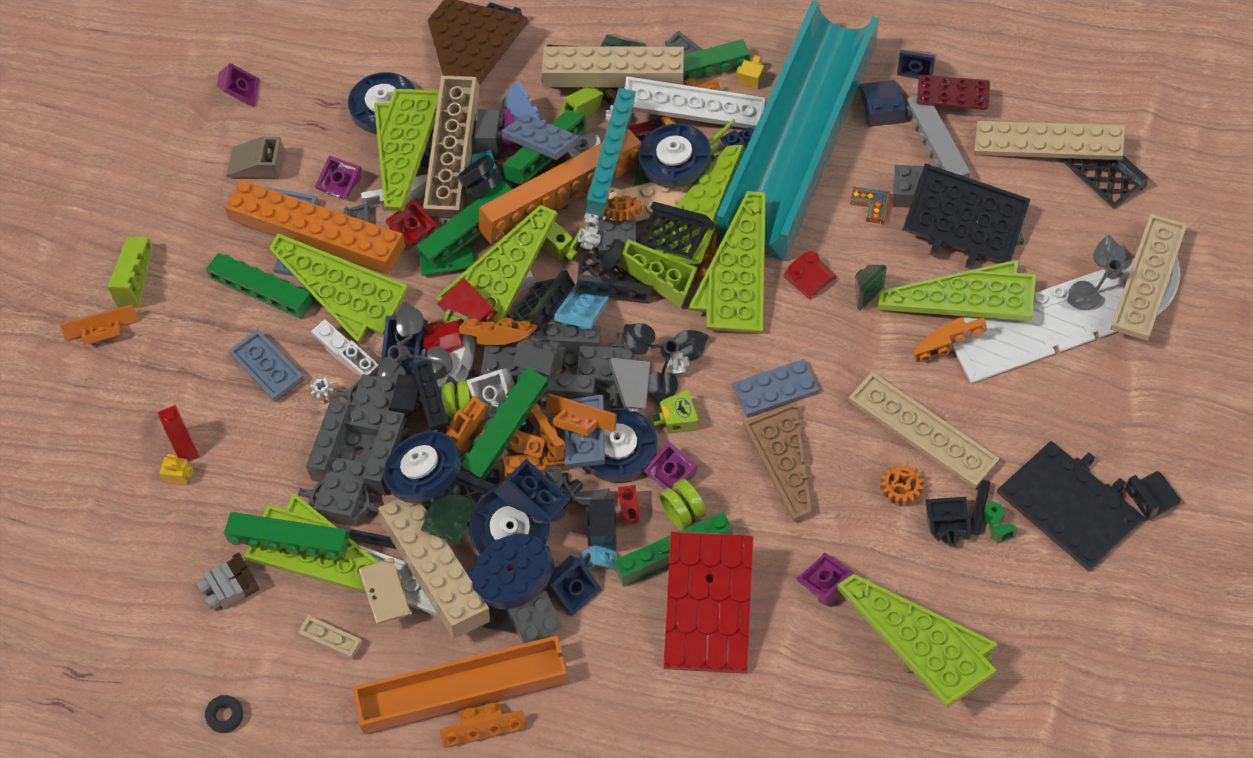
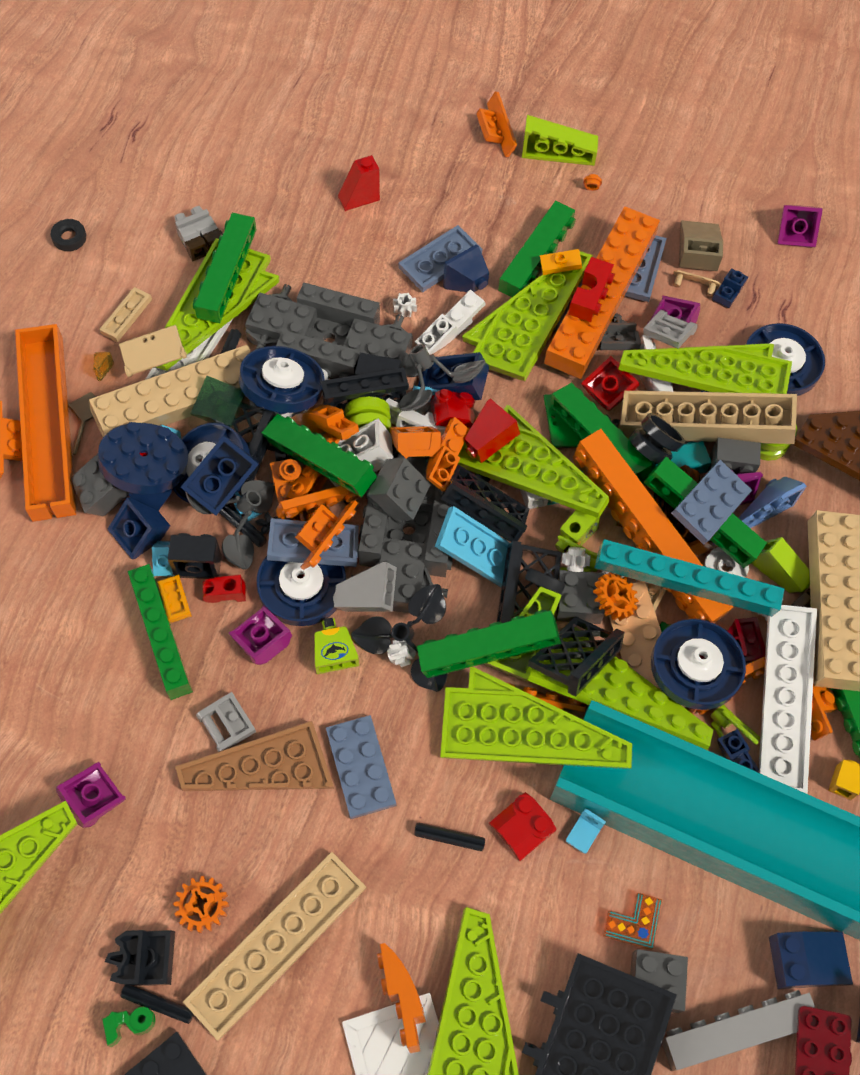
camera: 85 degrees right, 5 degrees up
(175, 470) = (326, 188): yellow brick -> none
(178, 244) = (592, 182): none -> orange plate
(284, 257) = (561, 262): none -> light orange plate
(288, 336) = (466, 271): none -> dark blue slope
(303, 140) = (730, 288): none -> dark blue slope
(303, 153) = (703, 280): none -> tan piece
(313, 218) = (587, 301): none -> red arch
(362, 178) = (669, 329): none -> light grey plate
(393, 648) = (102, 364): none -> clear yellow slope
(439, 655) = (82, 409): none -> dark tan piece
(484, 352) = (416, 440): none -> orange slope
(516, 457) = (290, 476): none -> orange plate
(638, 541) = (174, 598): none -> light orange plate
(674, 288) = (488, 644): none -> green brick
(682, 504) = (207, 640): lime wheel -> none
(708, 602) = (81, 657): red piece -> none
(748, 482) = (233, 719): none -> light grey plate
(809, 234) = (585, 831): none -> medium azure bracket
(824, 322) = (449, 836): none -> black axle
(869, 283) = (497, 895): clear green slope -> none

